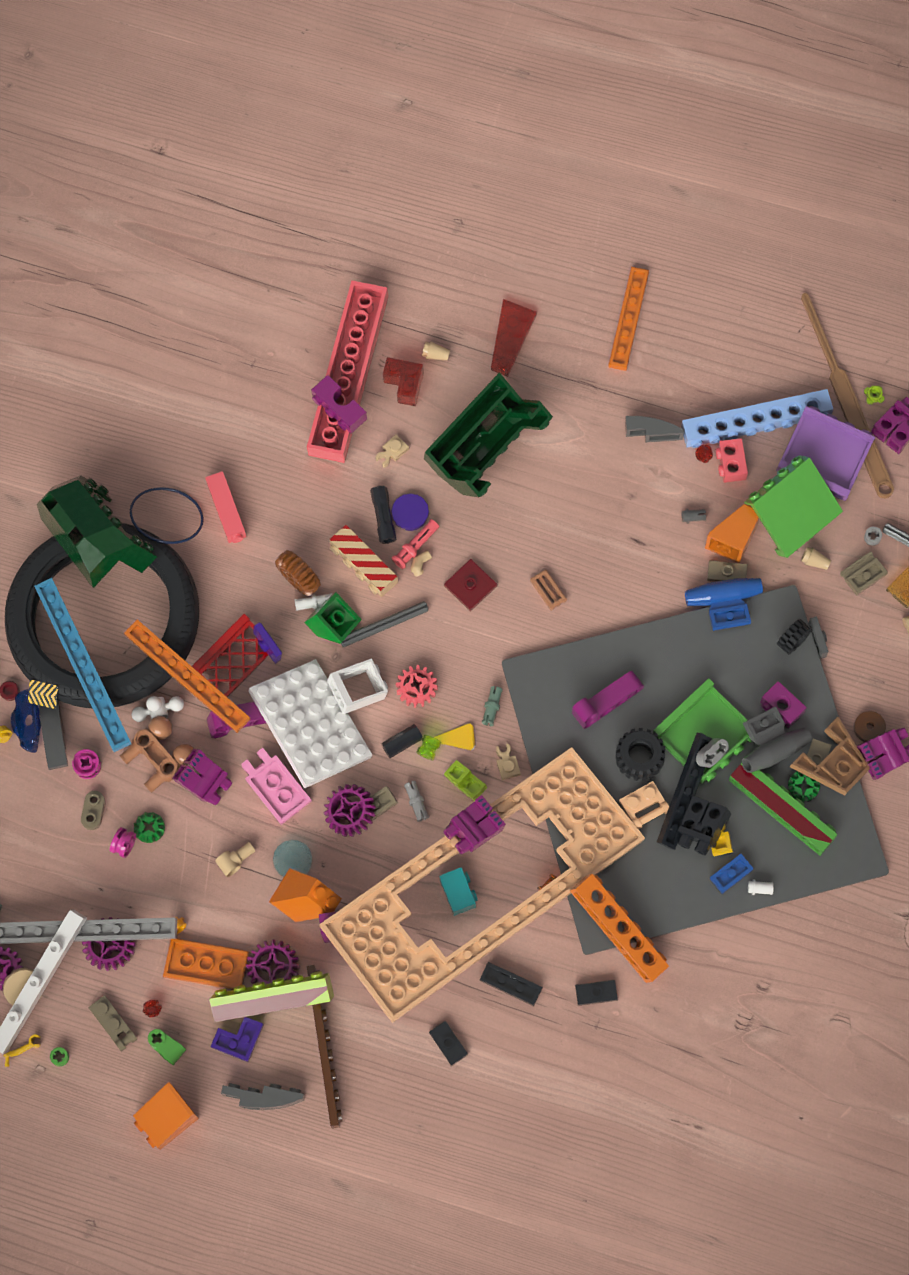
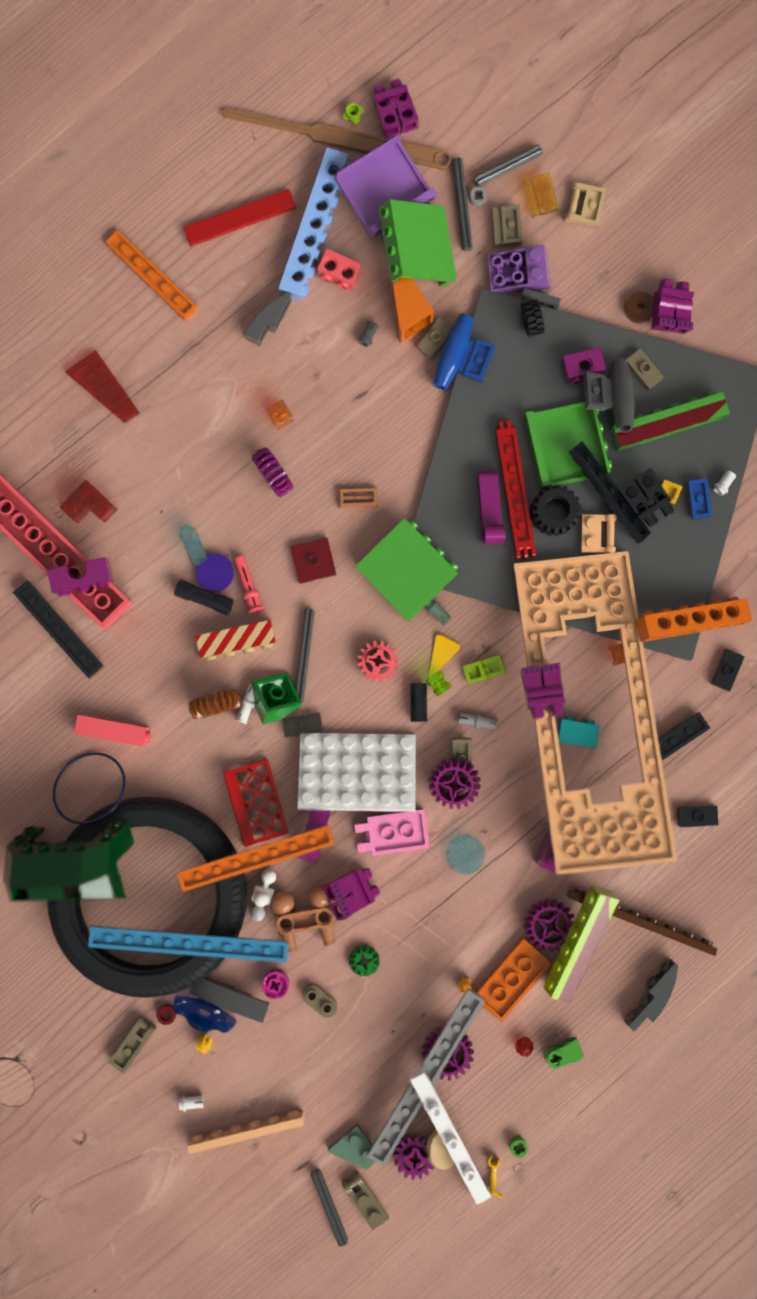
camera: 65 degrees left, 15 degrees up
(42, 694) = (192, 991): sticker -> none
(112, 1022) = (516, 1086): dark tan plate -> none
(123, 842) = (366, 992): dark pink wheel -> none
(164, 1117) = (625, 1087): orange slope -> none
(231, 862) = (437, 908): tan pin -> none
(238, 1045) = (599, 990): dark purple plate -> none
(267, 643) = (265, 769): dark purple plate -> none
(285, 417) = (58, 629): none -> black plate
(303, 897) = (510, 866): orange slope -> none
(324, 657) = (302, 725): none -> clear smoke plate
(341, 694) = (348, 730): white window -> none
(393, 449) = (147, 552): tan plate -> none
(418, 561) = (267, 595): tan arm -> none
(421, 480) = (193, 545): none -> clear light blue piece
(435, 351) = (78, 461): tan cone -> none
(482, 435) = (187, 466): dark green wedge -> none
(507, 765) = (492, 626): tan plate -> none
(511, 662) = (407, 569): none -> bright green panel
(523, 505) = (272, 471): none -> magenta gear
(576, 483) = (280, 414): none -> clear orange brick
(637, 711) = (515, 489): none -> red hinge
(700, 453) = (315, 293): clear red plate -> none
(711, 750) = (592, 450): light grey beam -> none
(724, 358) = (240, 217): none -> red tile
(796, 791) = (653, 392): green gear -> none
(814, 558) = (468, 258): tan cone -> none
(832, 605) = (519, 270): none -> medium lavender slope
(841, 767) = (665, 351): medium nougat wing -> none
(858, 526) = (462, 204): none -> dark grey axle

